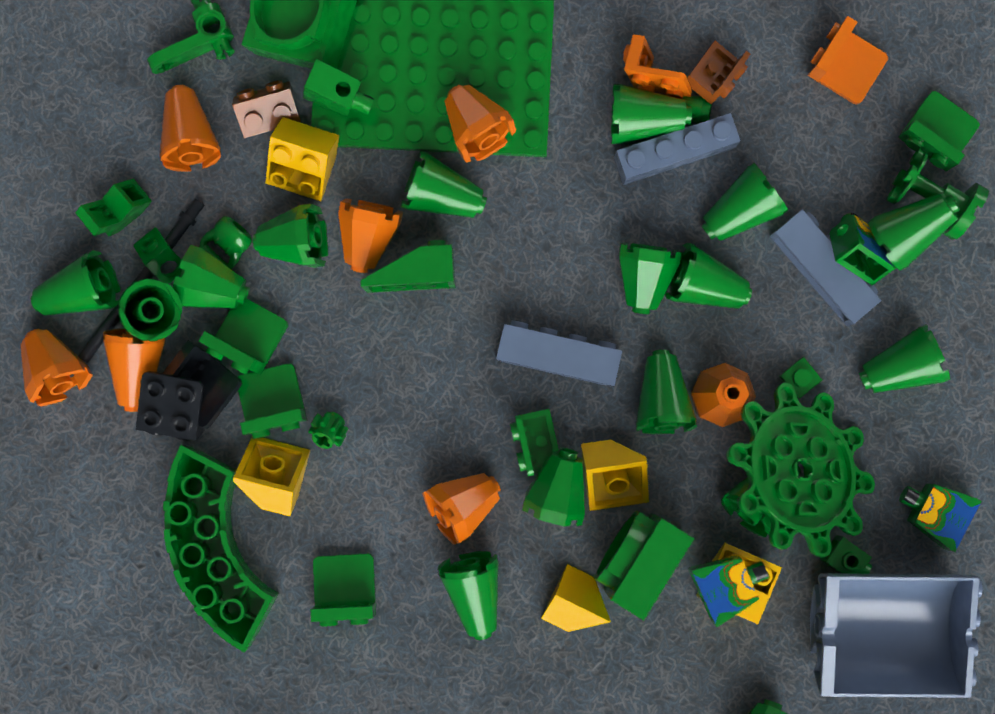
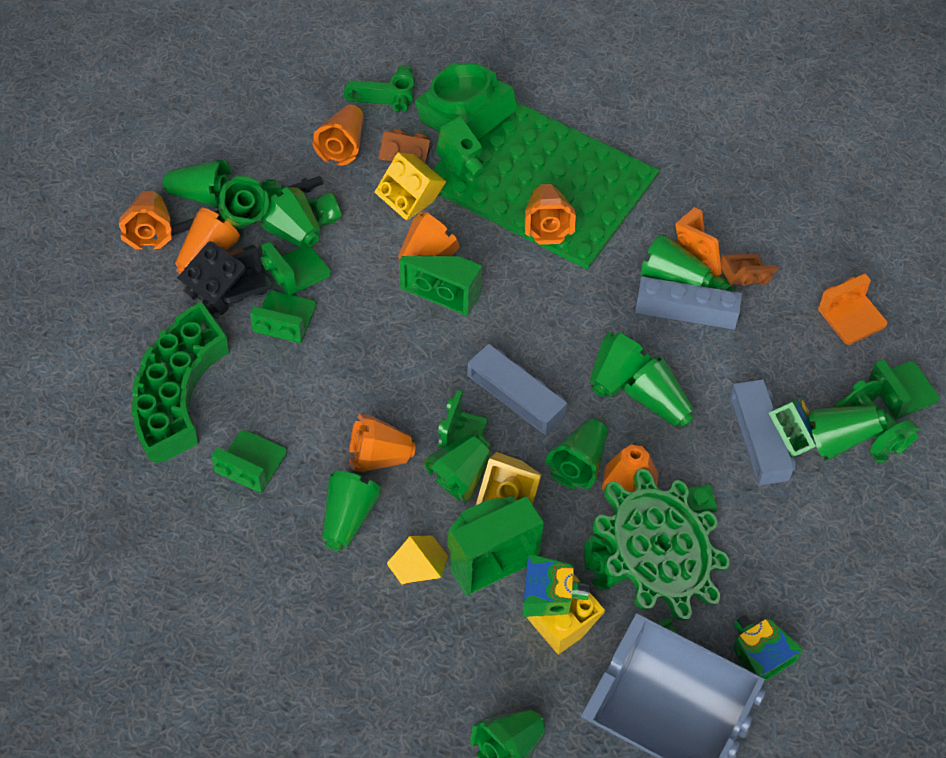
camera: 25 degrees right, 30 degrees down
(116, 209) = (263, 155): green brick -> none
(272, 474) = (250, 361): yellow slope -> none
(292, 237) = (373, 220): green cone -> none
(328, 430) = (312, 351): green gear -> none
(441, 190) = (496, 245): green cone -> none
(744, 205) = (718, 359): green cone -> none
(906, 364) = (790, 524): green cone -> none

